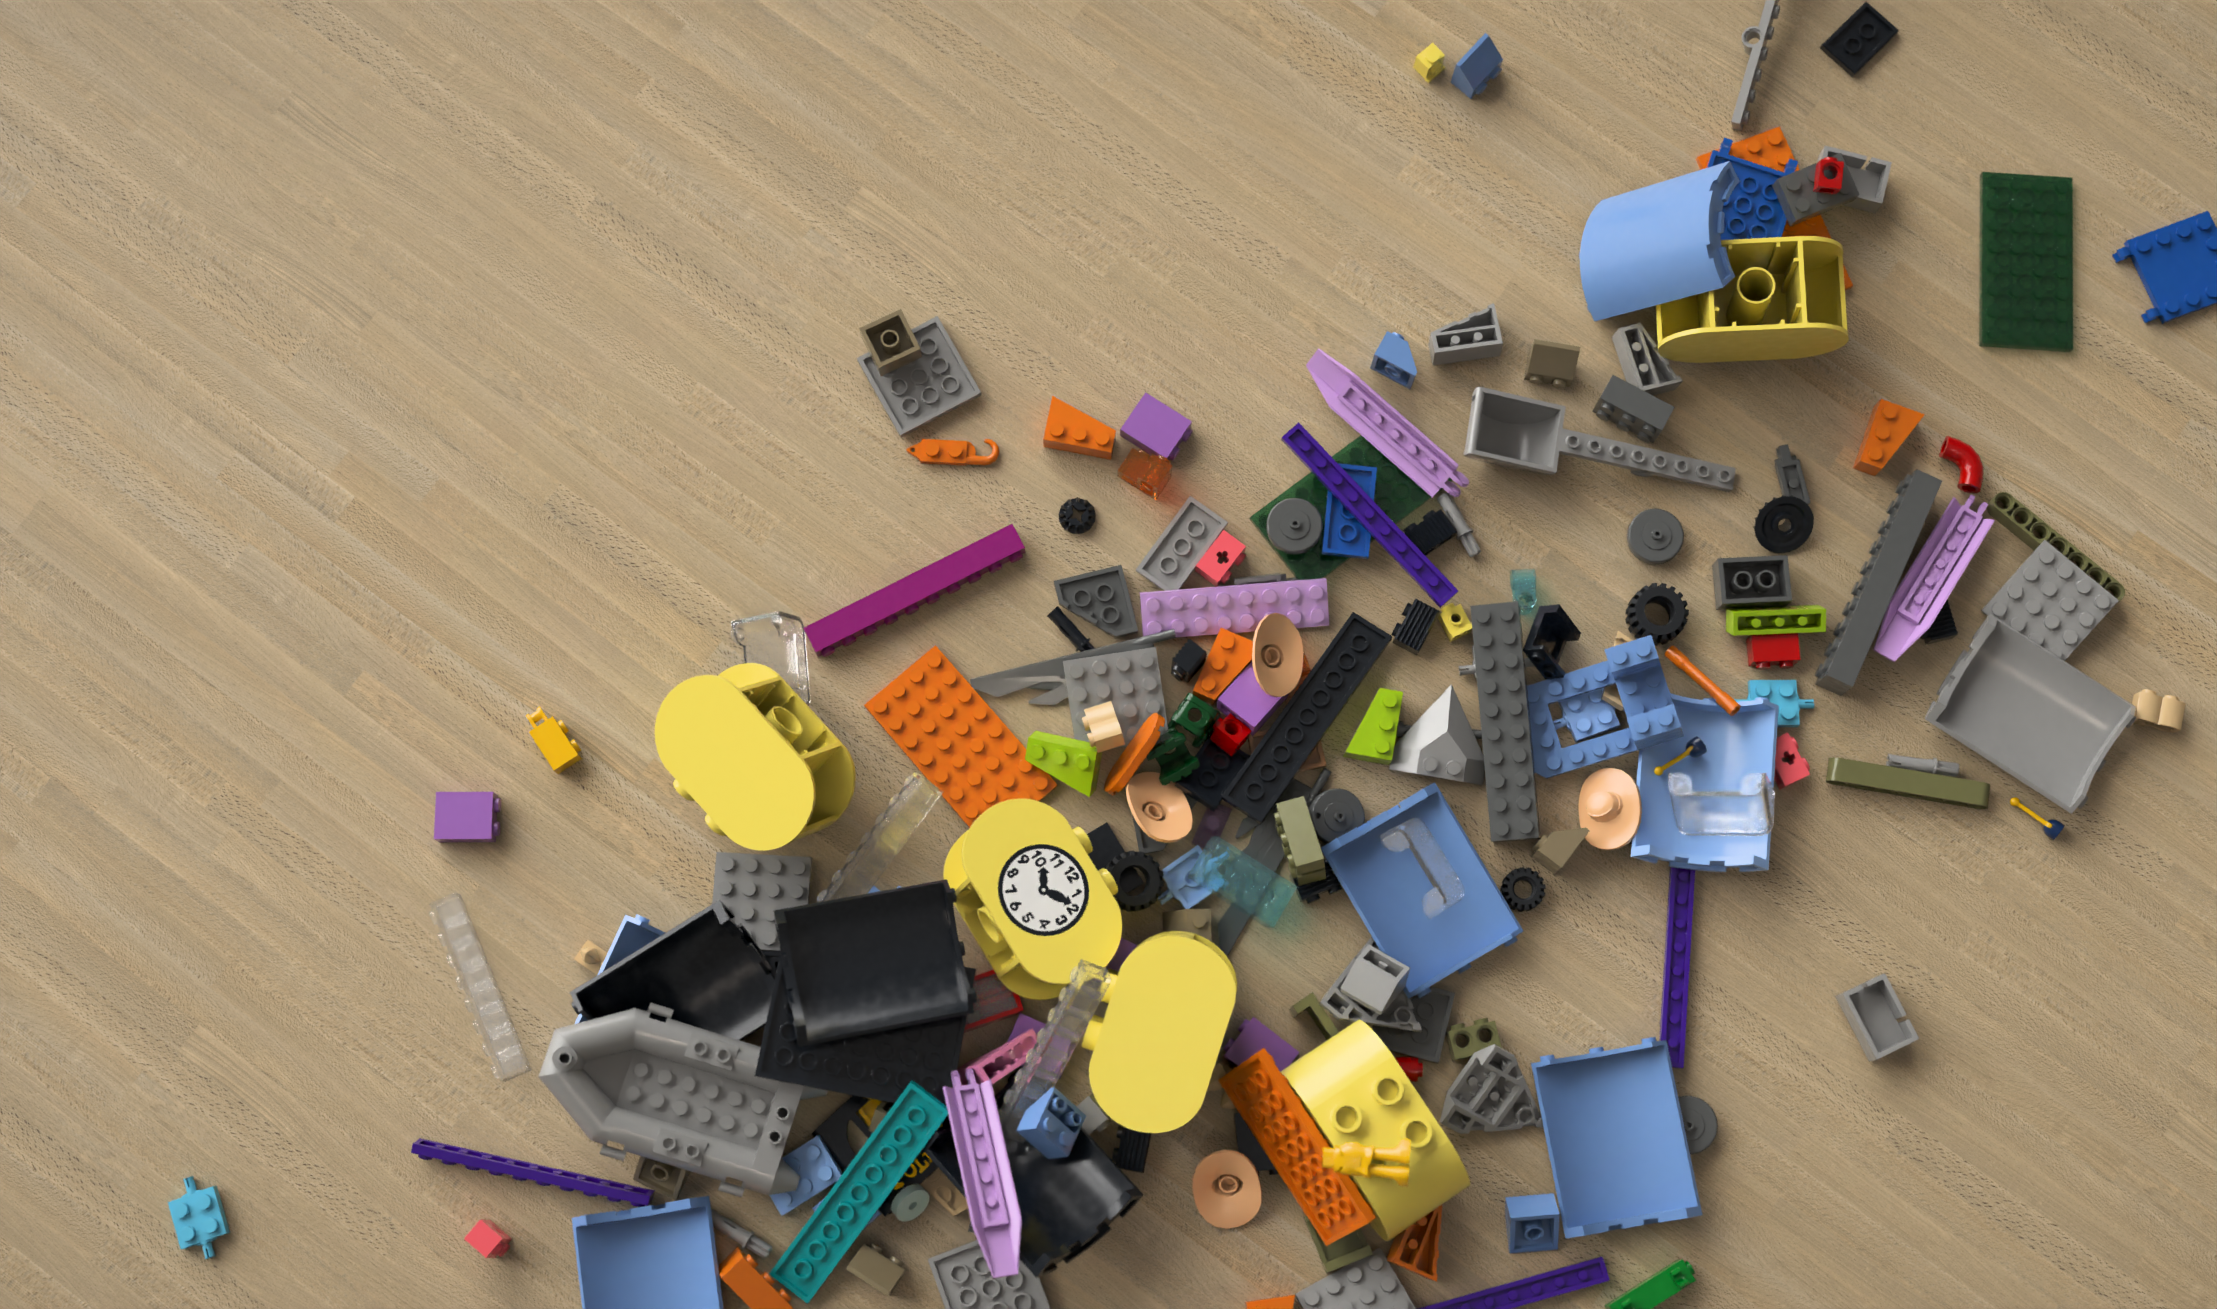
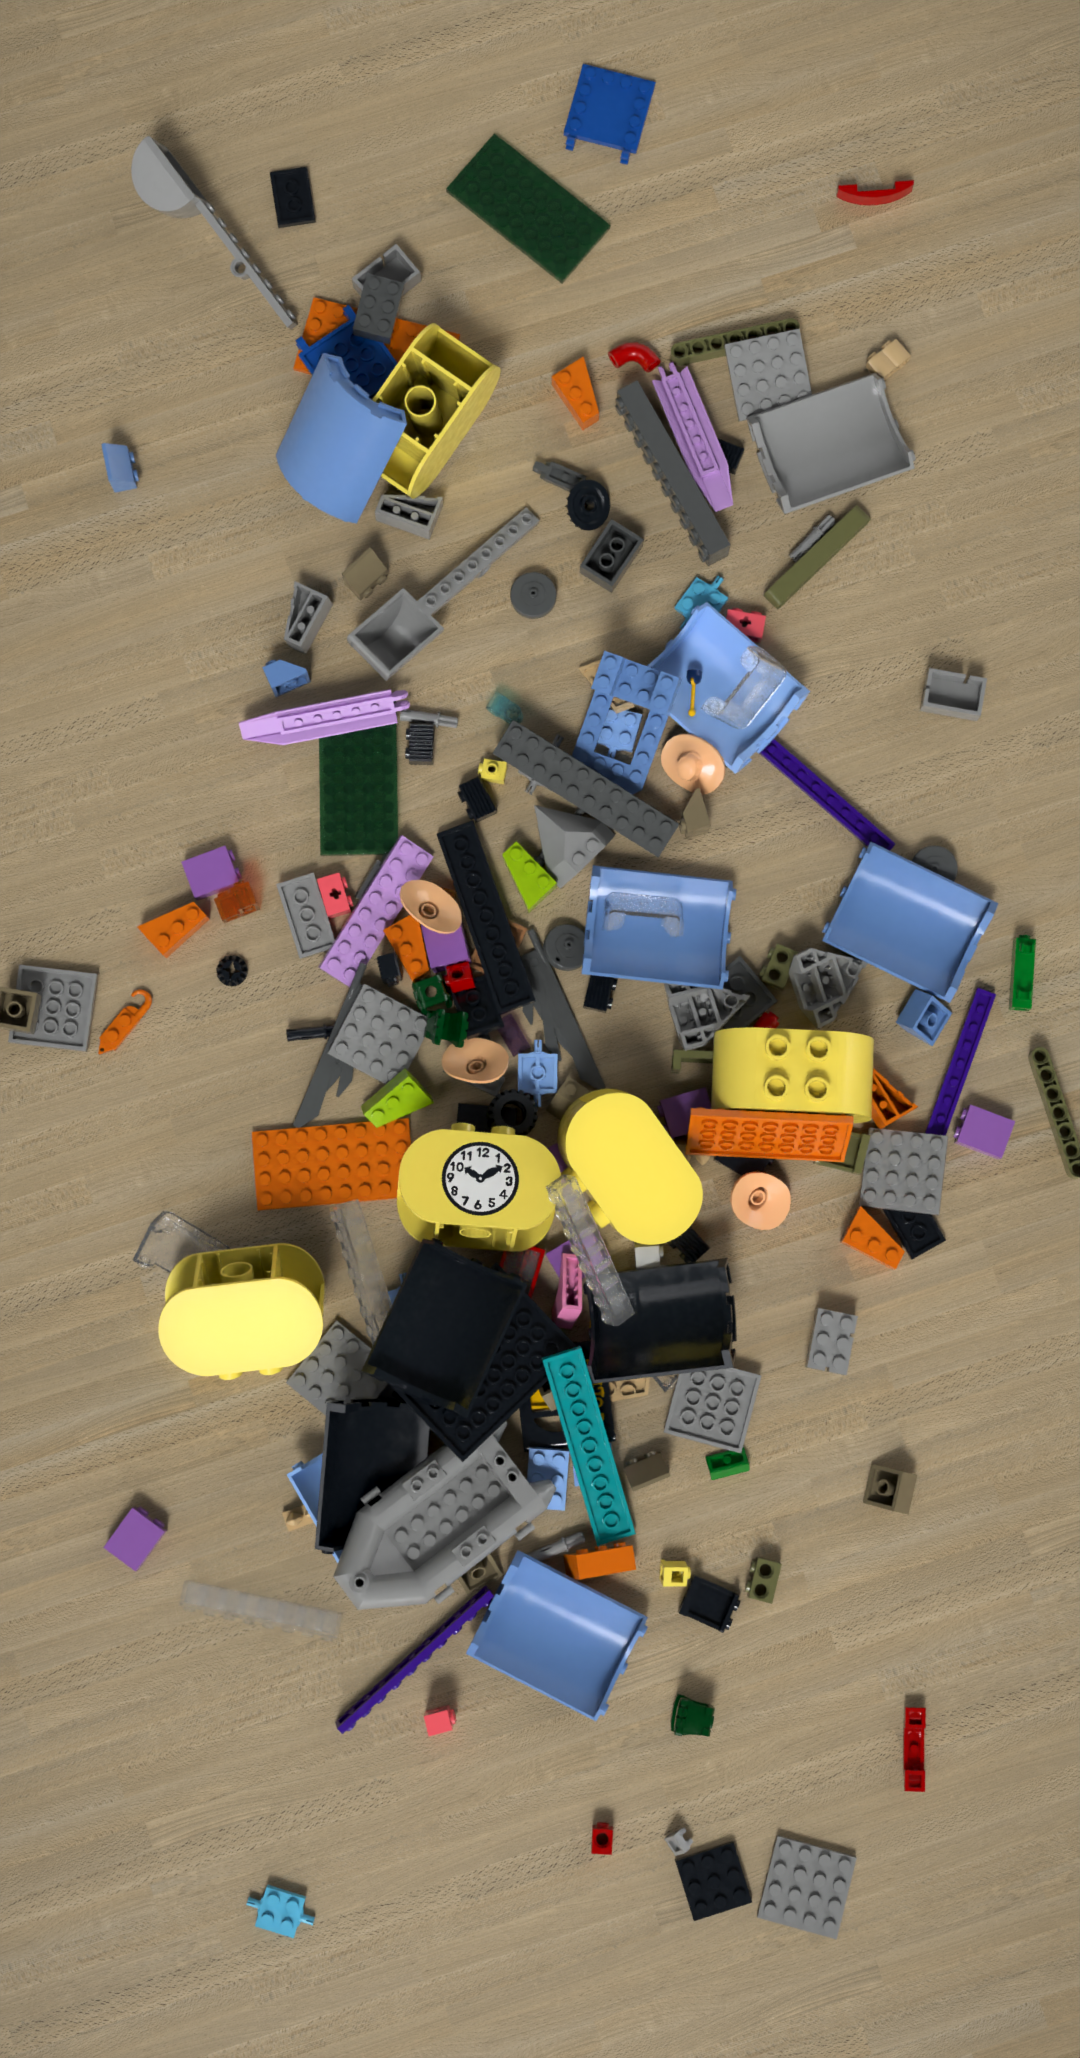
camera: 50 degrees left, 5 degrees up
(553, 741) = (126, 1441): yellow brick -> none
(910, 1202) = (618, 1417): light aqua piece -> none
(915, 590) = (203, 1118): magenta brick -> none
(985, 1172) = (638, 1351): lavender hinge -> none
(1052, 1124) = (637, 1285): medium blue slope -> none
(1099, 599) = (302, 997): dark grey plate -> none
(1103, 726) = (394, 1058): tan brick -> none
(1134, 754) = (427, 1051): orange tile -> none
(1242, 881) = (565, 1042): clear light blue brick -> none
(1294, 526) = (349, 829): dark grey wheel -> none
(1299, 841) = (567, 983): piece -> none
(1342, 532) = (366, 785): blue plate -> none
(1356, 1160) = (809, 1101): yellow piece -> none
(1369, 515) = (379, 774): dark purple plate -> none
(1375, 979) = (695, 1002): light grey slope -> none
(1429, 62) = (91, 496): light yellow brick -> none
(1533, 879) = (708, 849): black tyre -> none
(1548, 638) = (551, 719): black panel -> none
(1633, 409) = (437, 544): dark grey brick -> none
(1669, 600) = (591, 619): black tyre -> none
(1722, 698) = (674, 634): orange piece -> none
(1773, 650) = (665, 576): red brick -> none
(1775, 620) = (648, 559): lime brick -> none
(1826, 185) = (380, 301): red brick -> none
(2051, 827) = (913, 487): hinge -> none

